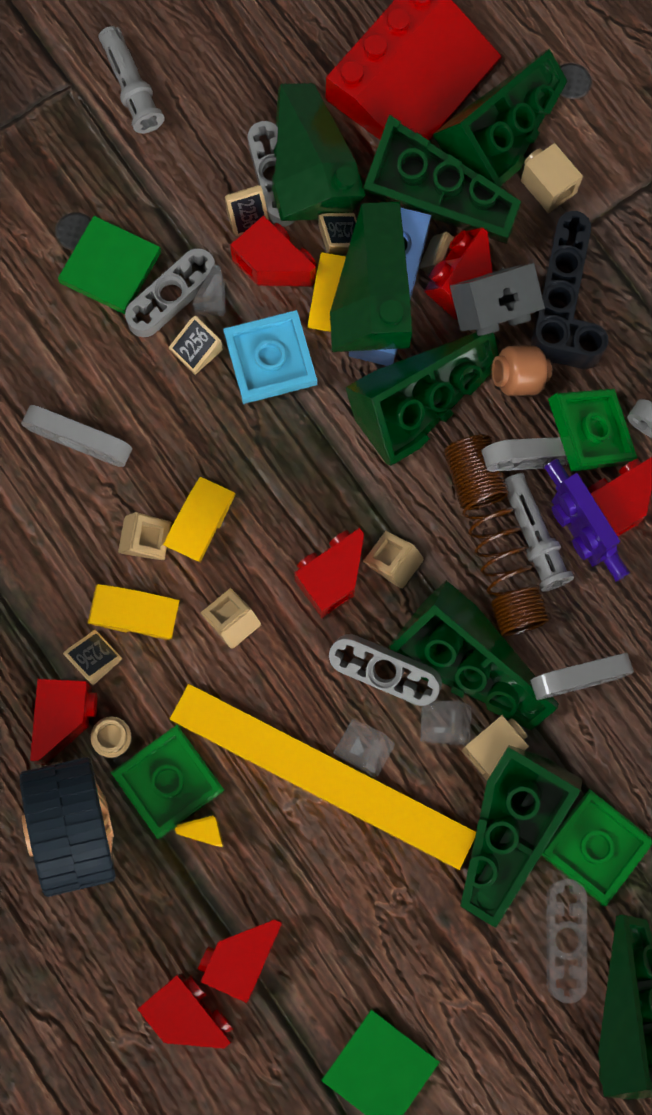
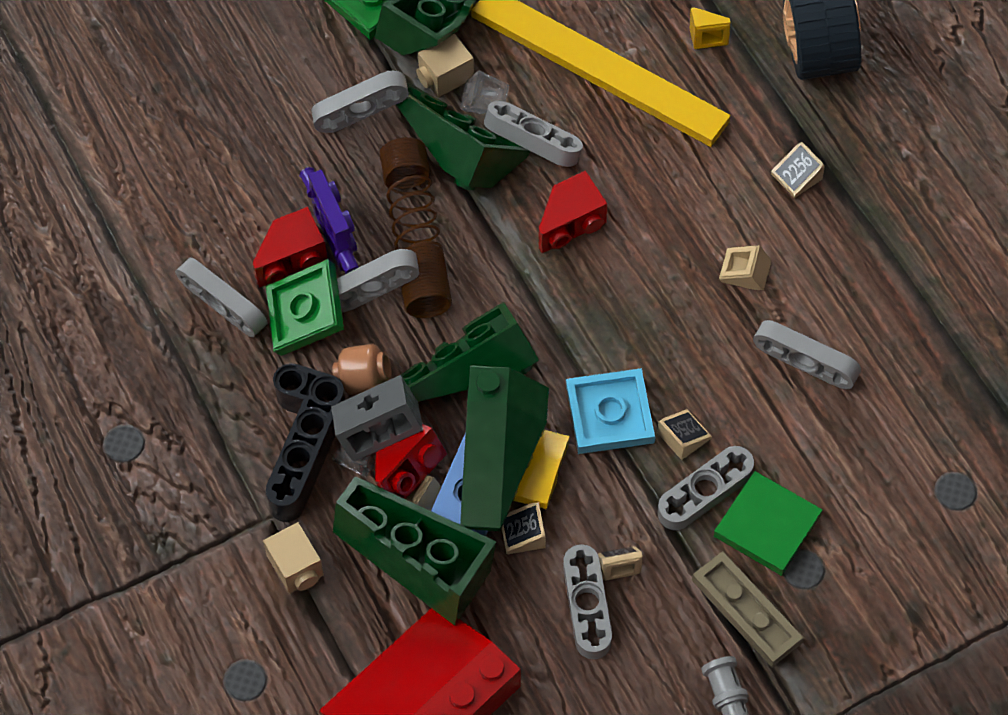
camera: 170 degrees left, 15 degrees down
(60, 716) = (827, 123): red slope -> none
(111, 737) = (783, 108): tan plate -> none
(125, 177) = (747, 609): none -> dark tan plate
(133, 611) = (764, 201): yellow slope -> none
(167, 782) = (735, 74): green tile -> none
(199, 519) = (690, 272): yellow slope -> none
(211, 295) = (663, 472): clear slope -> none
(231, 618) = (670, 194): tan slope -> none
(271, 258) = (599, 504): red slope -> none
(312, 159) = (545, 592): dark green wedge -> none
(364, 748) = (560, 83): clear slope -> none
(394, 559) = (512, 227): tan slope -> none
(503, 122) = (343, 617): dark green wedge -> none
(538, 551) = (372, 214): light grey pin -> none

